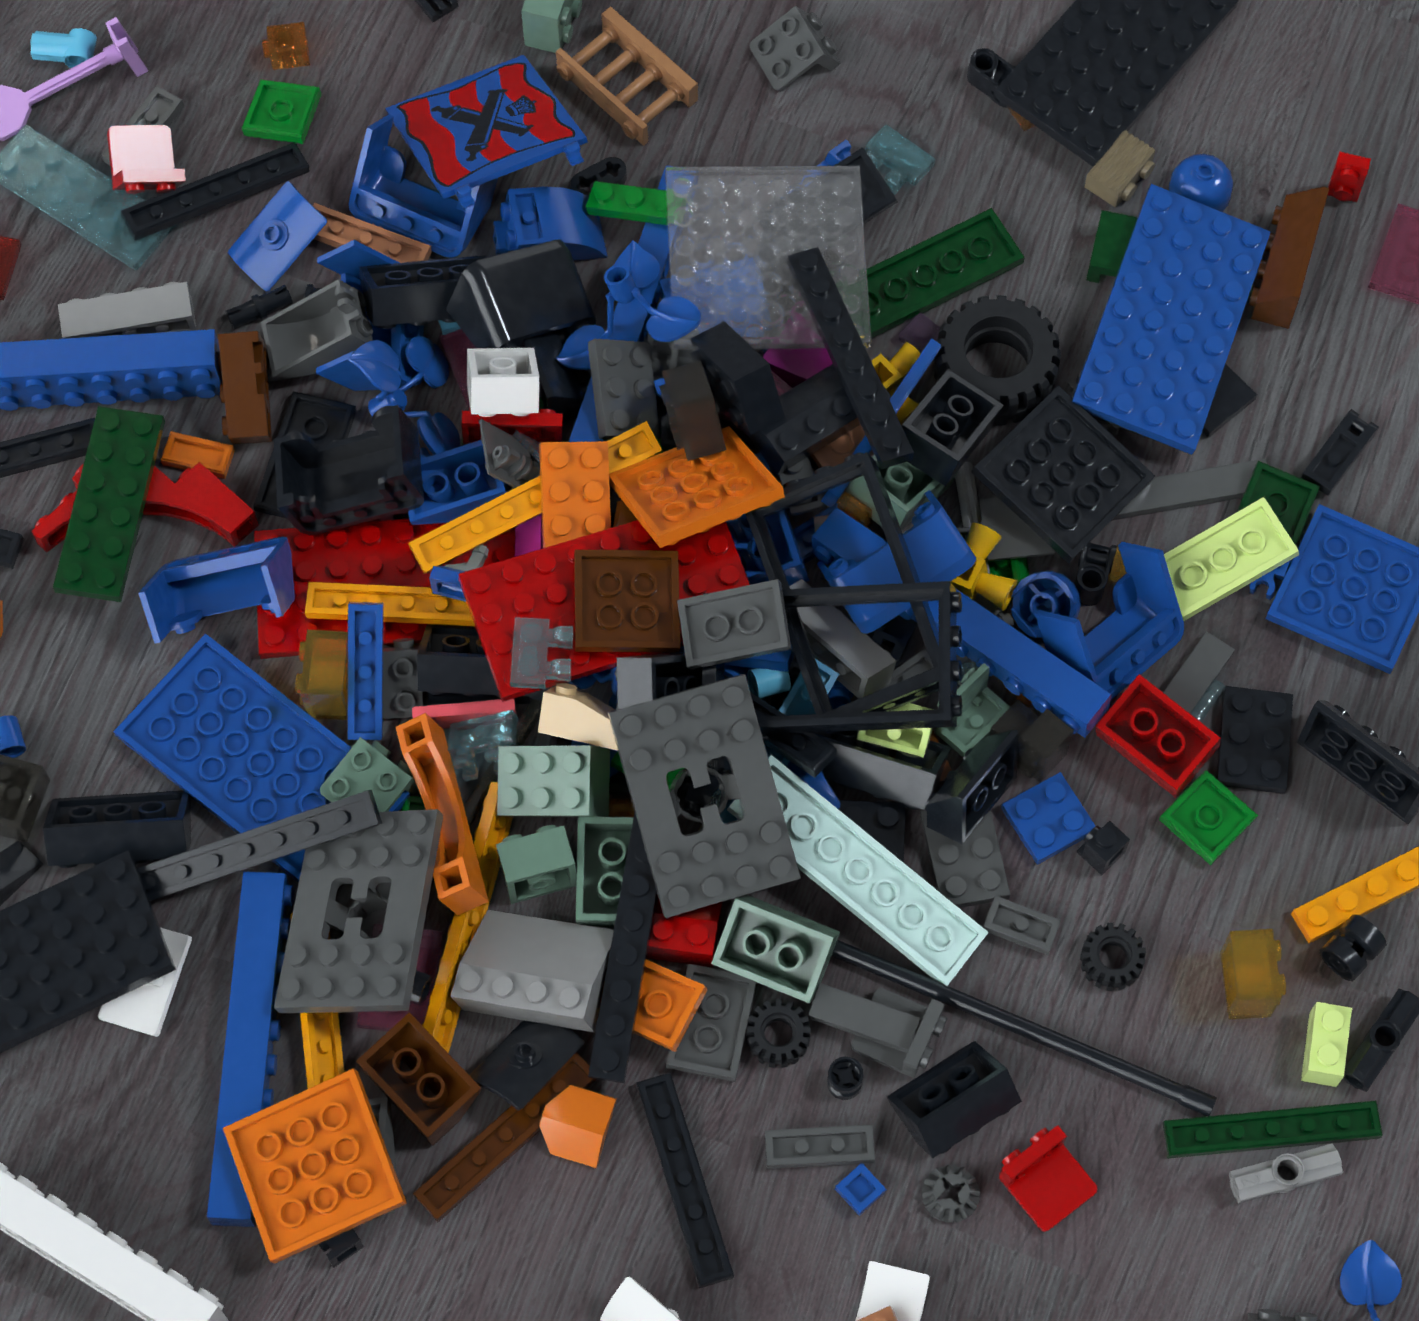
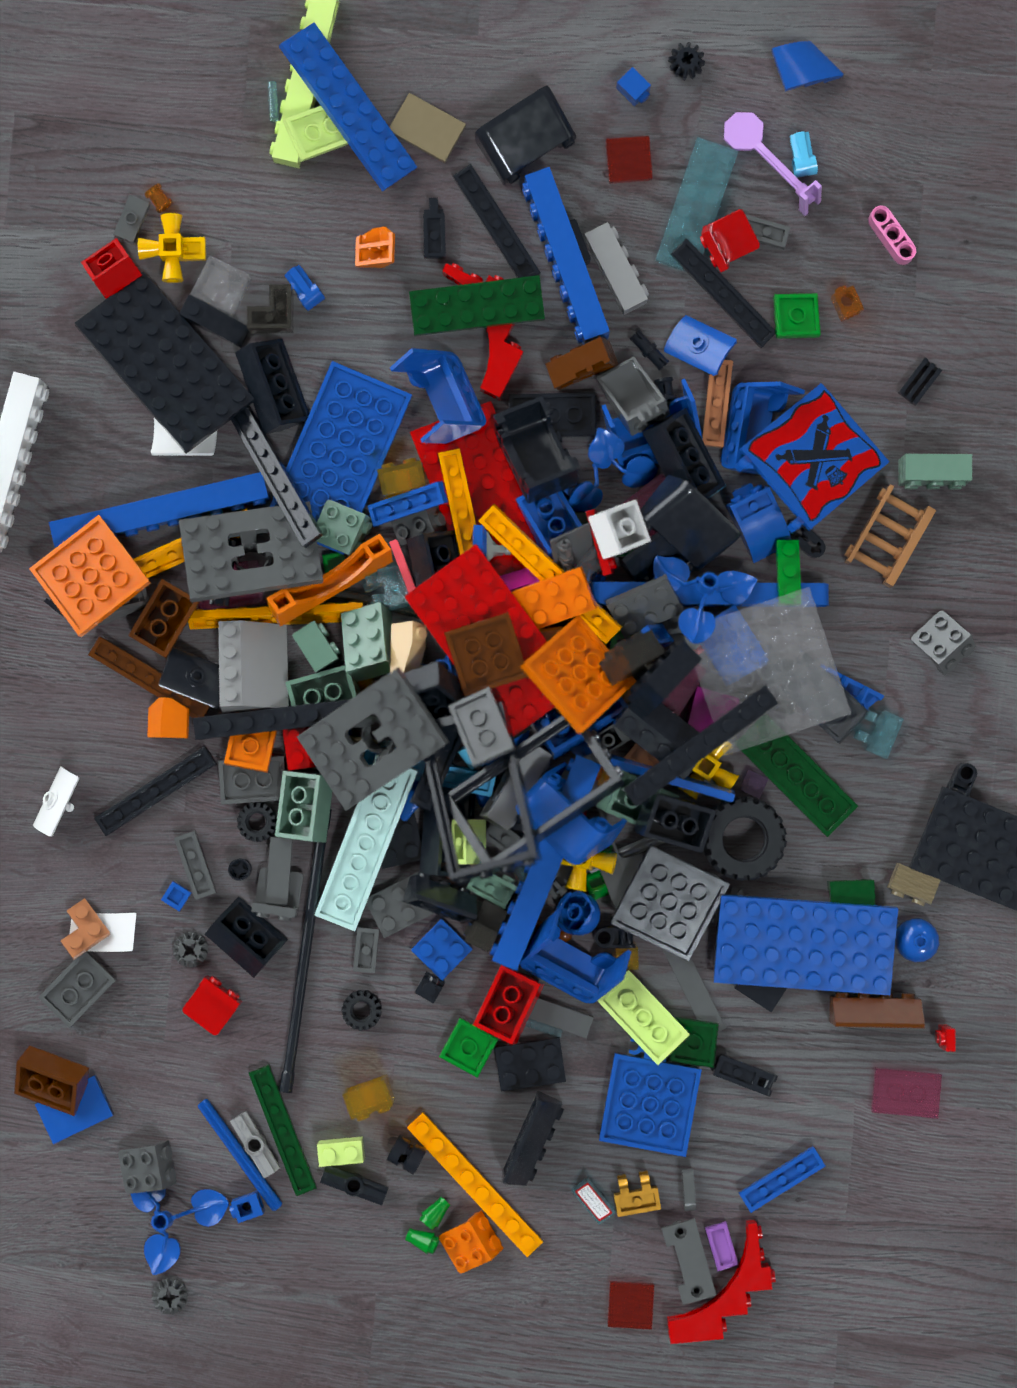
camera: 75 degrees right, 20 degrees up
(186, 451) = (534, 346): orange tile -> none
(530, 653) = (435, 605): clear light blue plate -> none
(1296, 1205) = (239, 1154): none -> blue axle
(1389, 1202) = (242, 1214): none -> blue brick

